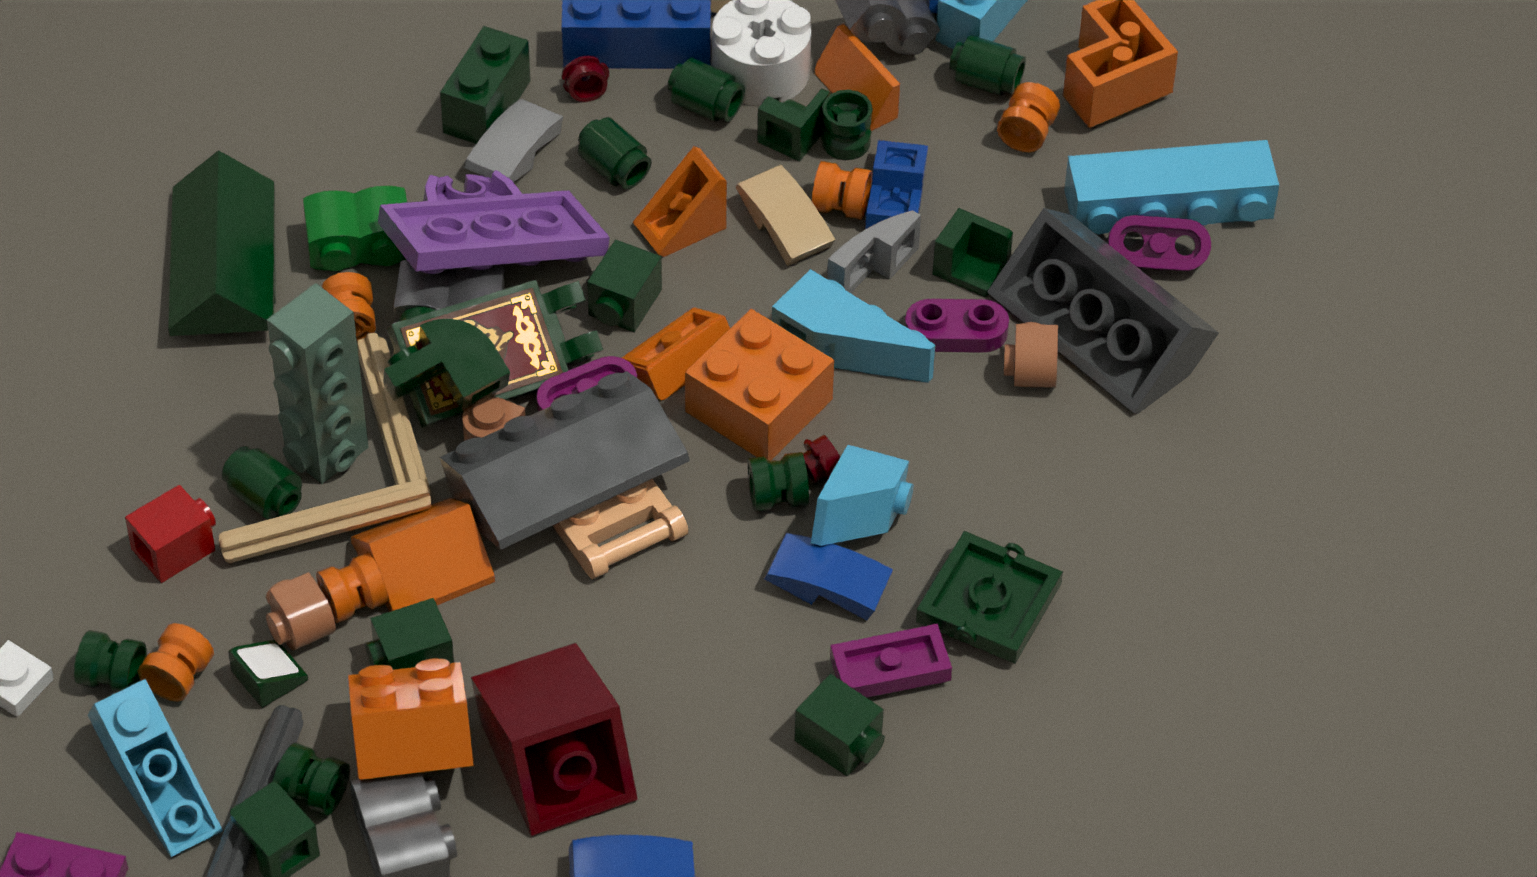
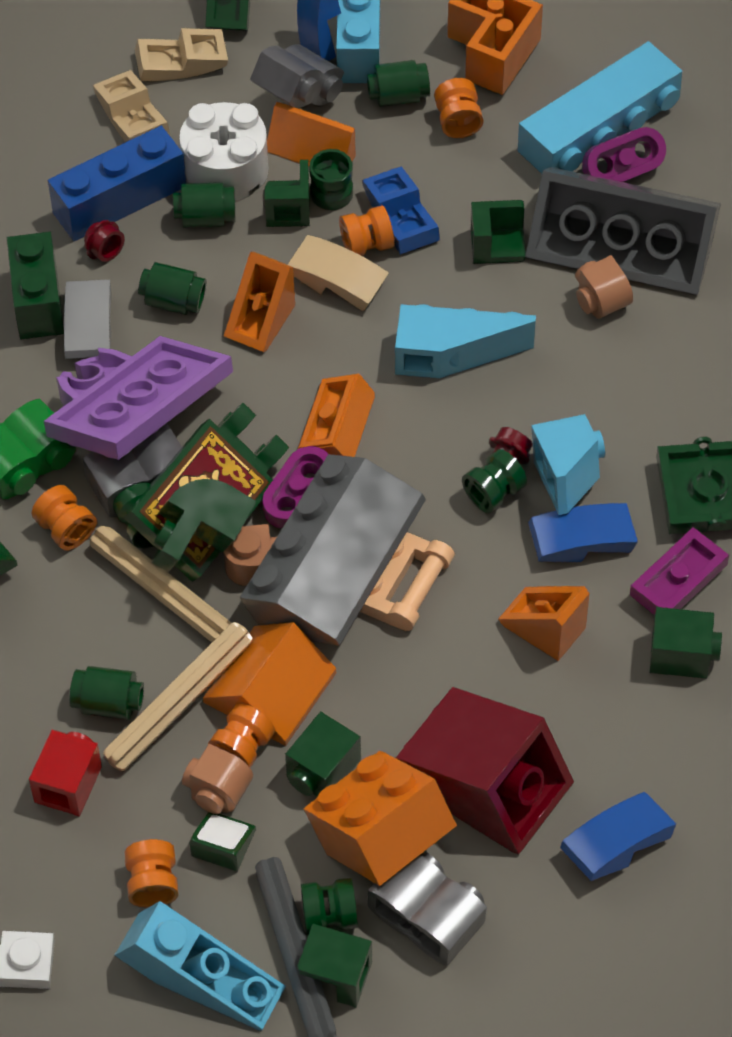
camera: 30 degrees left, 5 degrees up
(108, 662) = (100, 903): dark green wheel -> none
(318, 383) = (119, 589): sand green brick -> none
(624, 286) = (264, 387): dark green brick -> none
(730, 637) = (548, 617): none -> orange slope
(759, 385) = (425, 414): orange brick -> none
(878, 249) = (429, 264): light grey slope -> none
(960, 324) = (526, 290): magenta plate -> none

